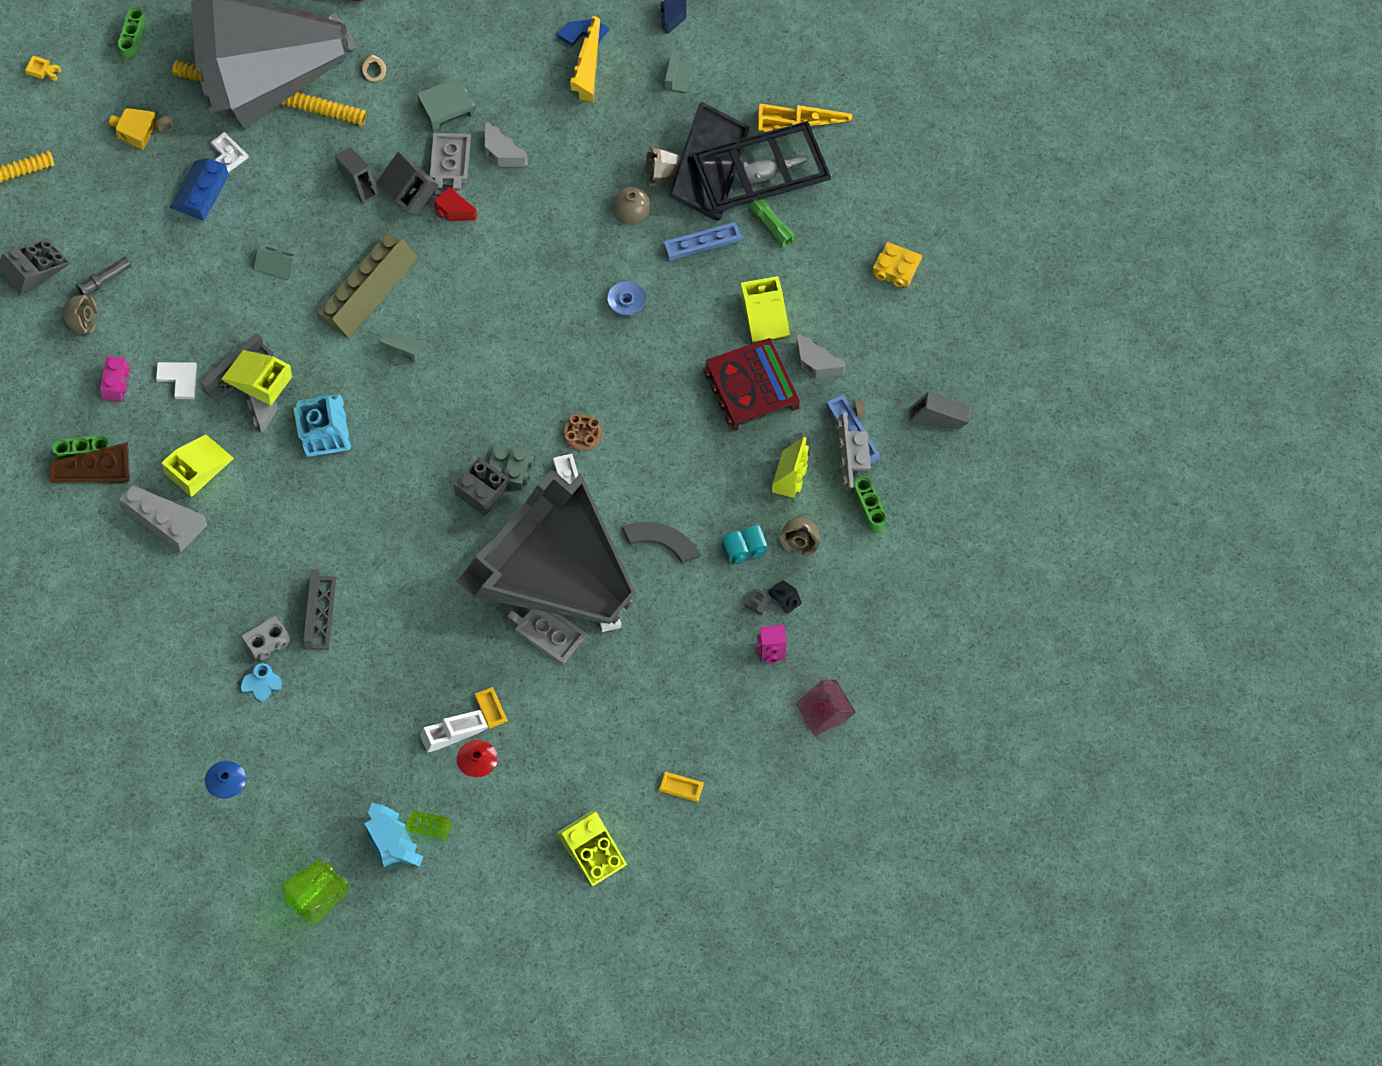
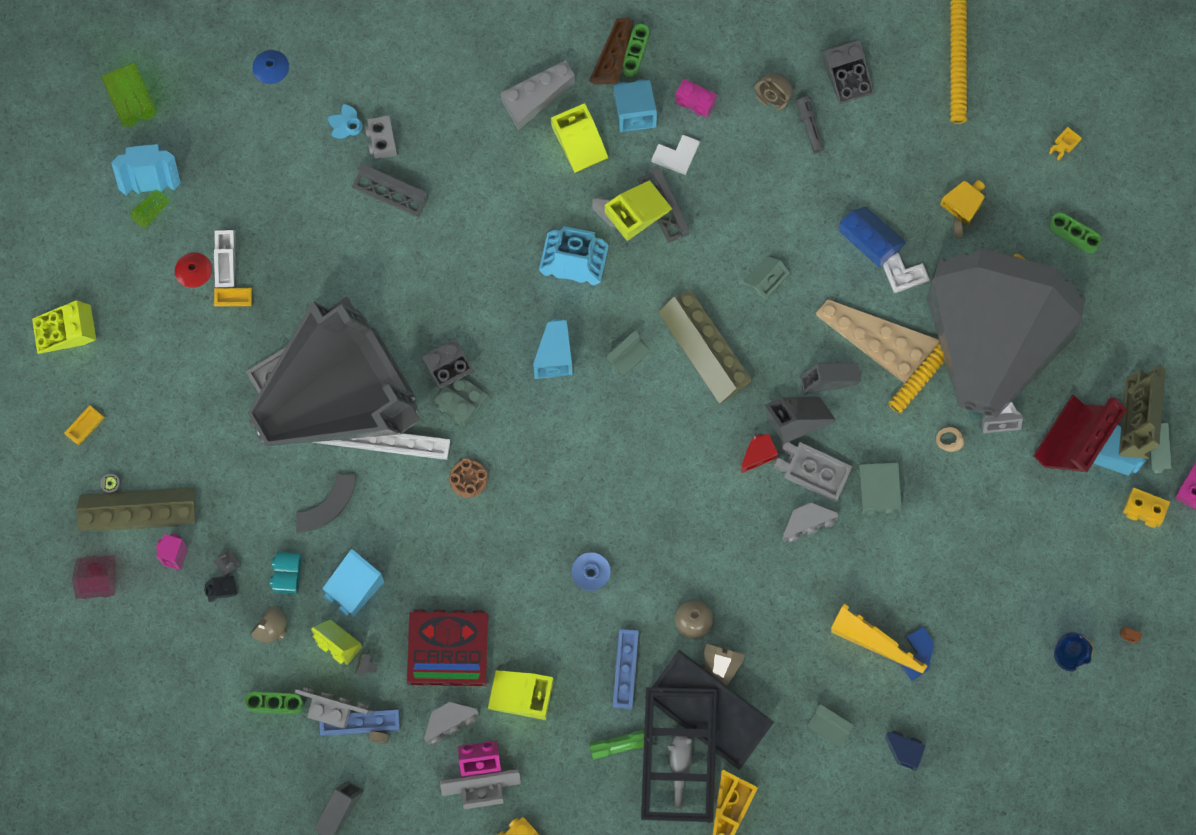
camera: 115 degrees right, 10 degrees up
(142, 425) = (635, 105): none -> medium azure slope
(300, 149) = (887, 343): none -> tan wing
(428, 399) = (554, 351): none -> medium azure slope
(728, 737) = (110, 483): none -> tile
(729, 481) = (352, 584): none -> medium azure slope
(742, 700) = (136, 509): none -> olive slope
(838, 320) = (479, 758): none -> dark pink brick
(866, 309) = (481, 789): none -> light grey bracket

